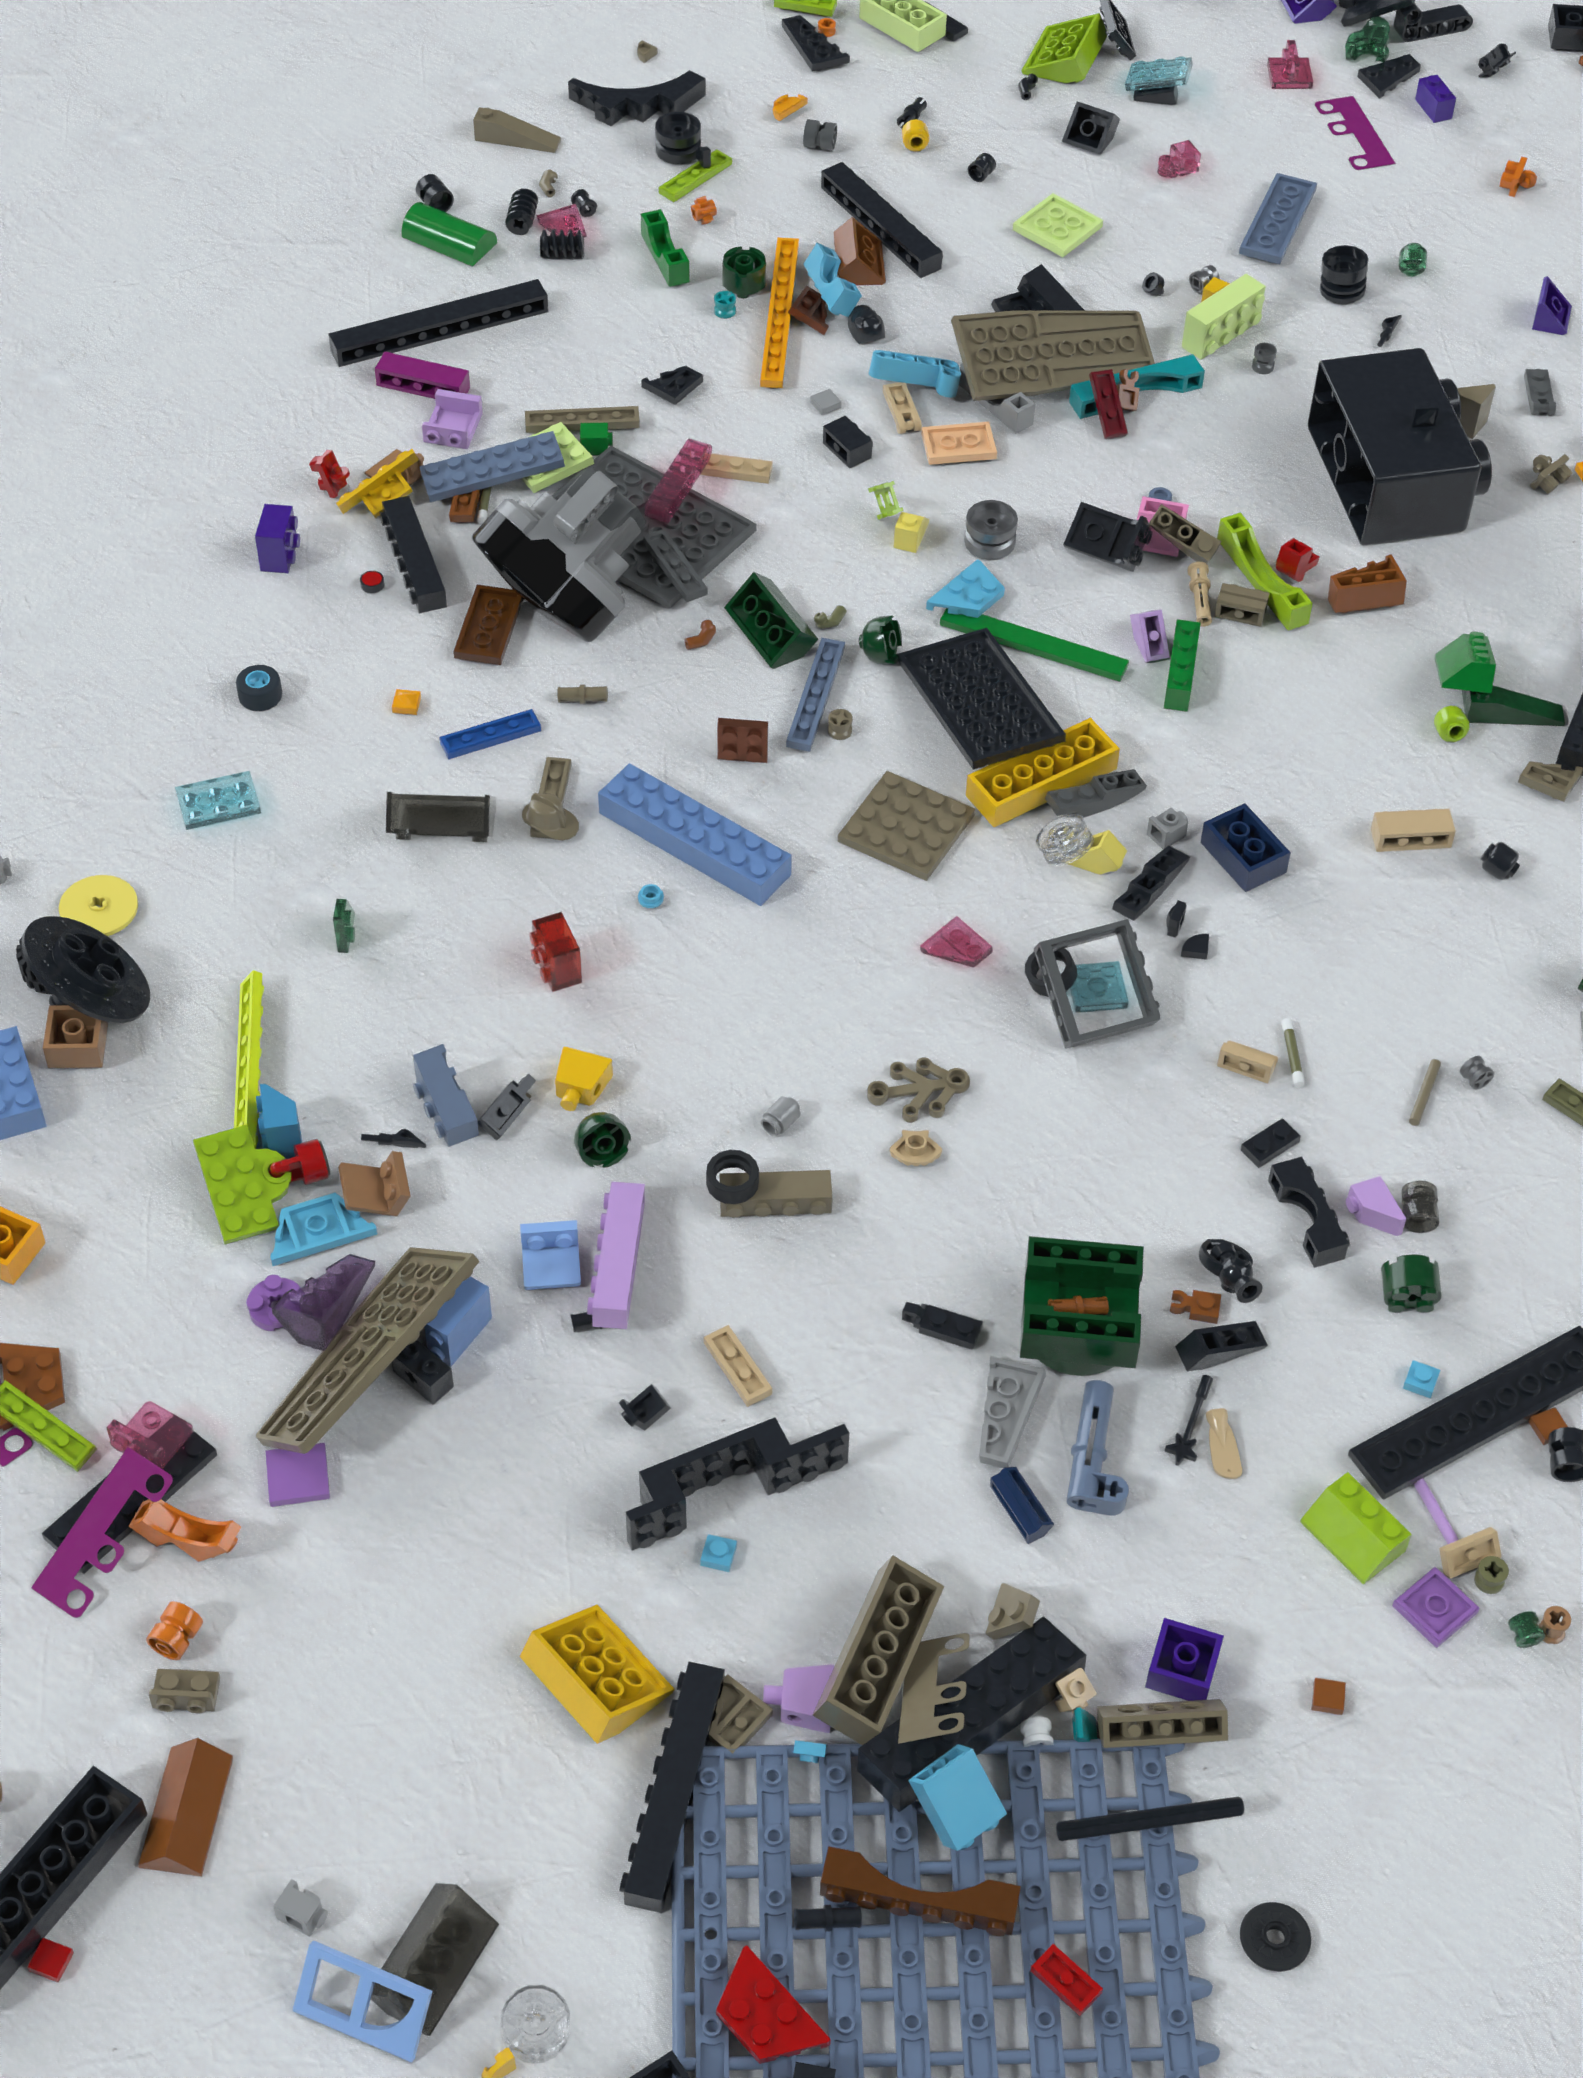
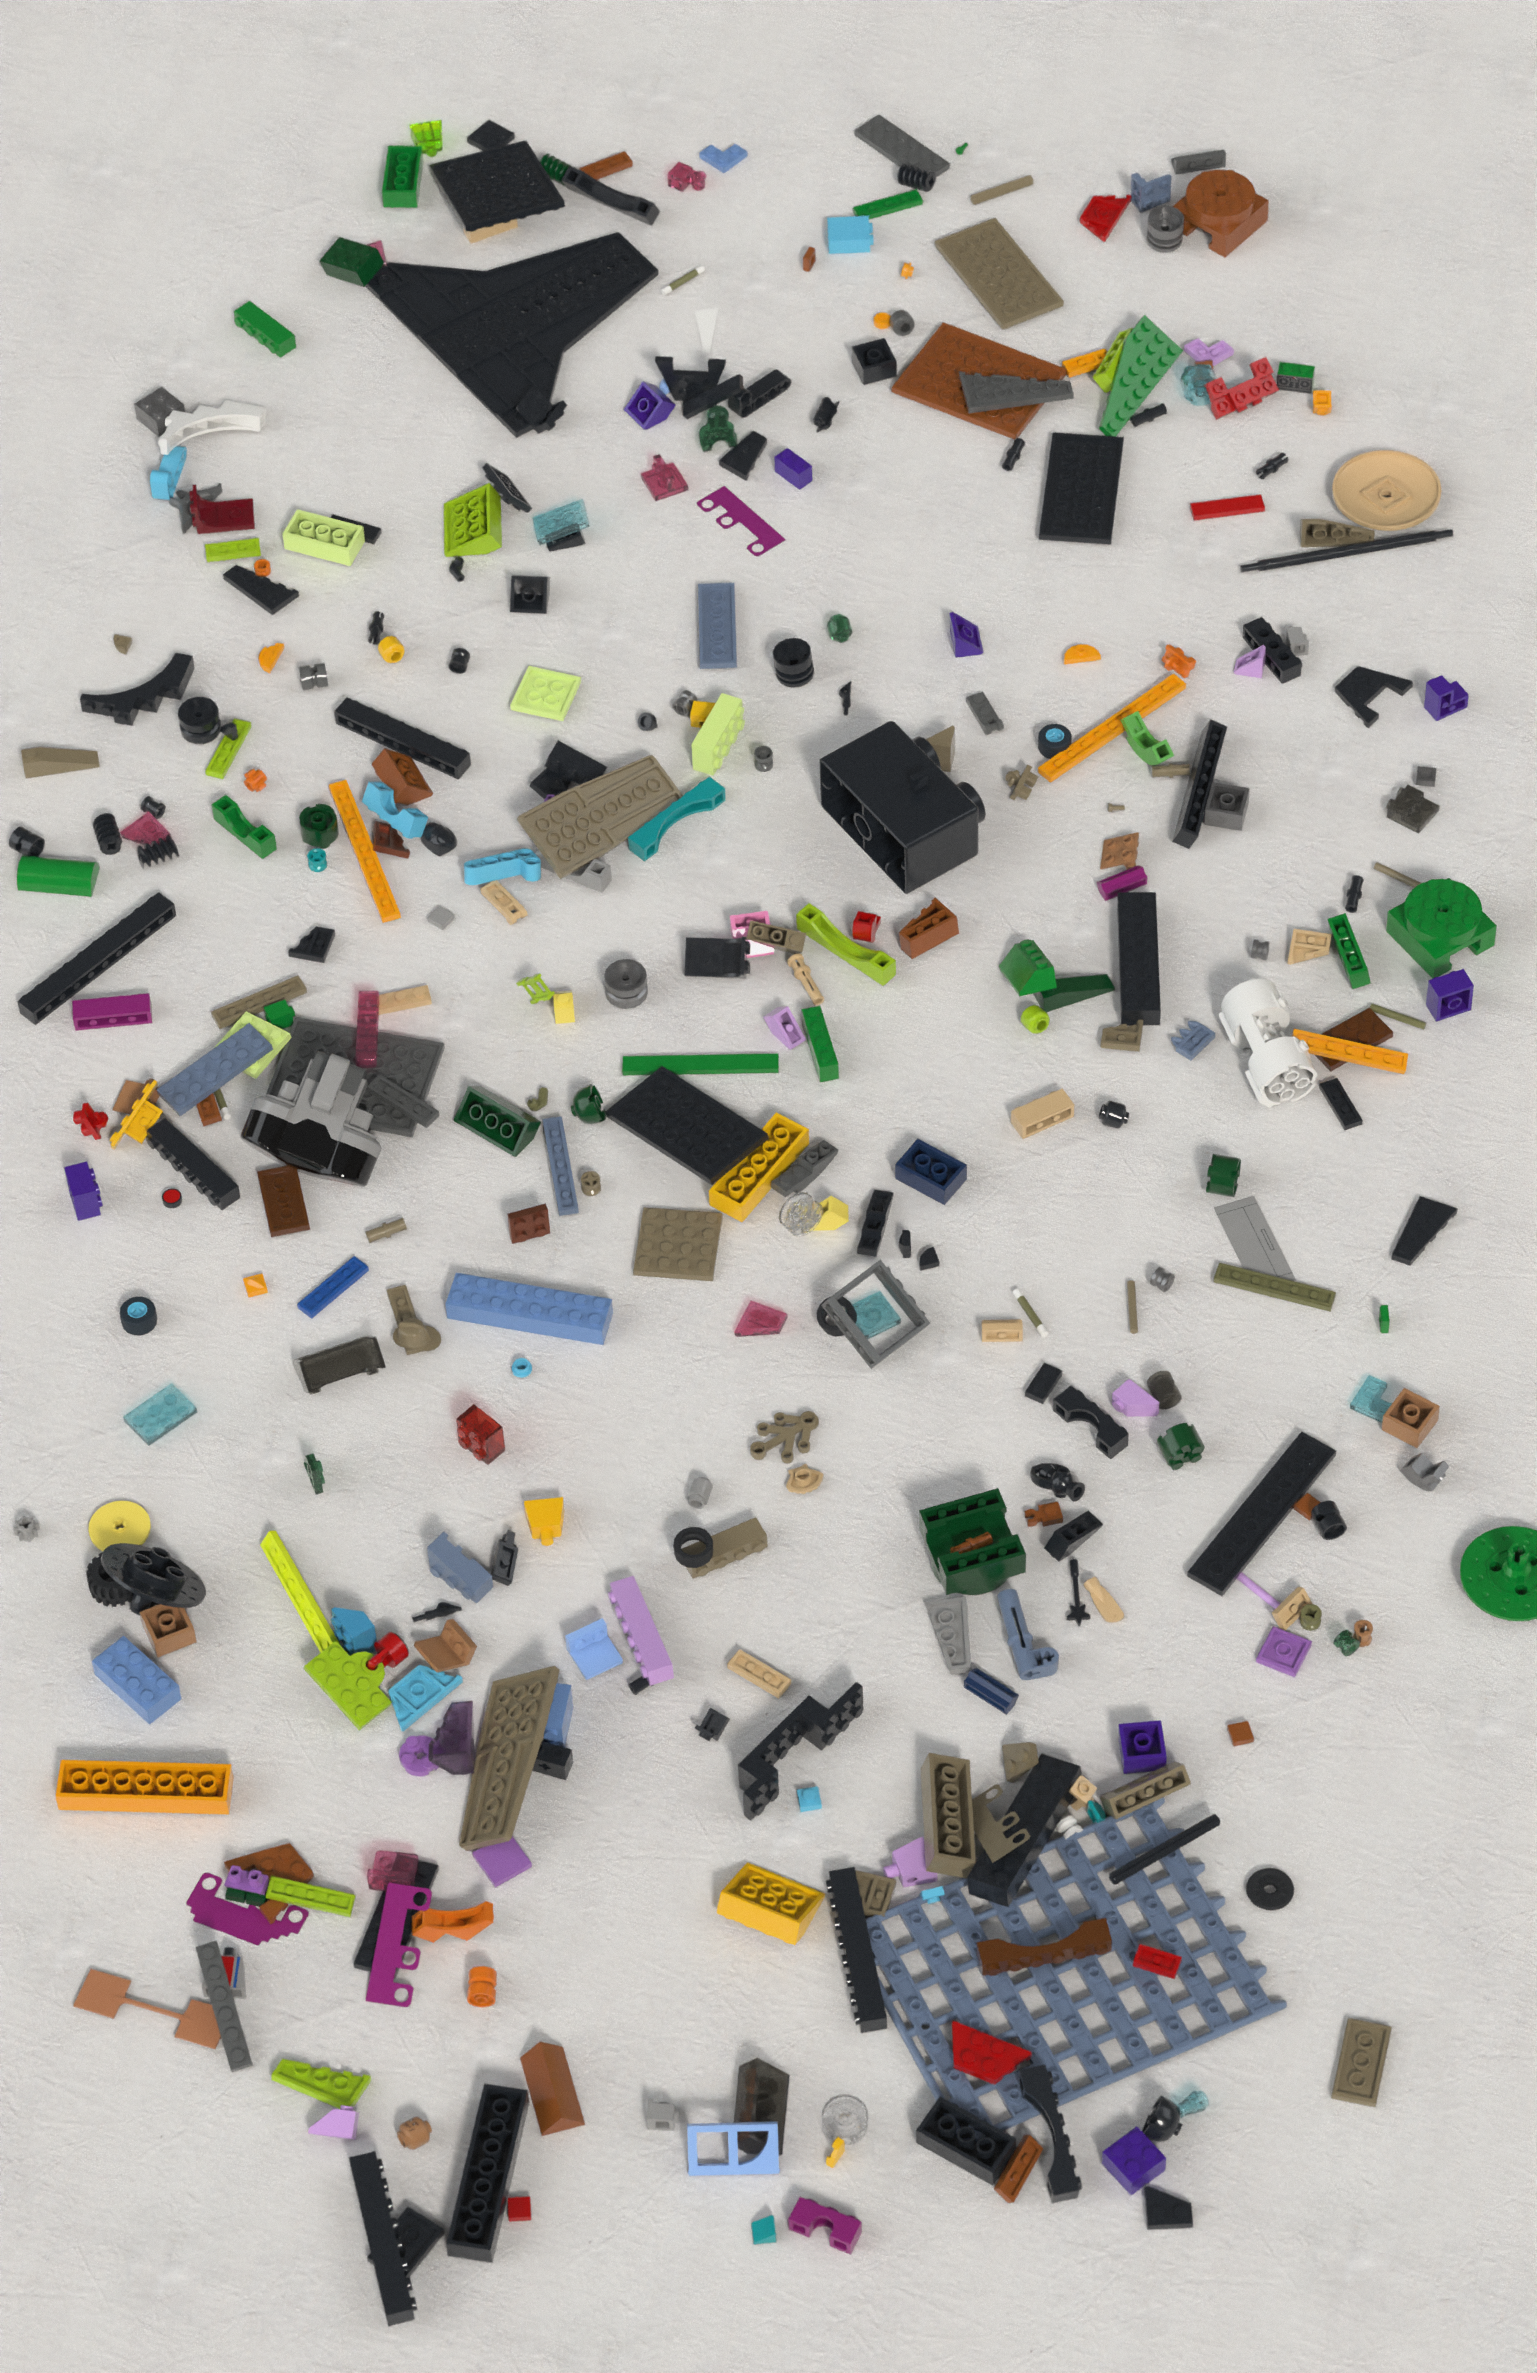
camera: 20 degrees left, 0 degrees up
(185, 1690) = (508, 2020): dark tan bracket -> none
(453, 419) = (157, 1039): lavender panel -> none
(546, 180) = (109, 798): dark tan arm -> none
(601, 1139) = (585, 1556): dark green cylinder -> none
(704, 637) = (452, 1150): dark orange arm -> none
(827, 1918) = (995, 1985): black pin -> none
(847, 441) = (477, 947): black brick -> none
(943, 1324) = (882, 1593): black hinge -> none
(958, 1797) = (1042, 1881): medium azure brick -> none
(959, 443) = (563, 917): light nougat plate -> none
(969, 592) = (634, 1041): medium azure wing -> none
(1108, 404) = (664, 843): dark red tile -> none
(1127, 392) = (673, 830): plate -> none
(1160, 493) = (738, 907): sand blue tile -> none
(1167, 827) = (867, 1176): light grey brick -> none
(1182, 160) = (616, 598): clear pink brick -> none
(1241, 604) = (841, 977): dark tan brick -> none
(1356, 1528) = (1213, 1621): lime slope -> none
(1421, 1379) = (1213, 1507): medium azure plate -> none
(1516, 176) = (896, 520): orange hips -> none

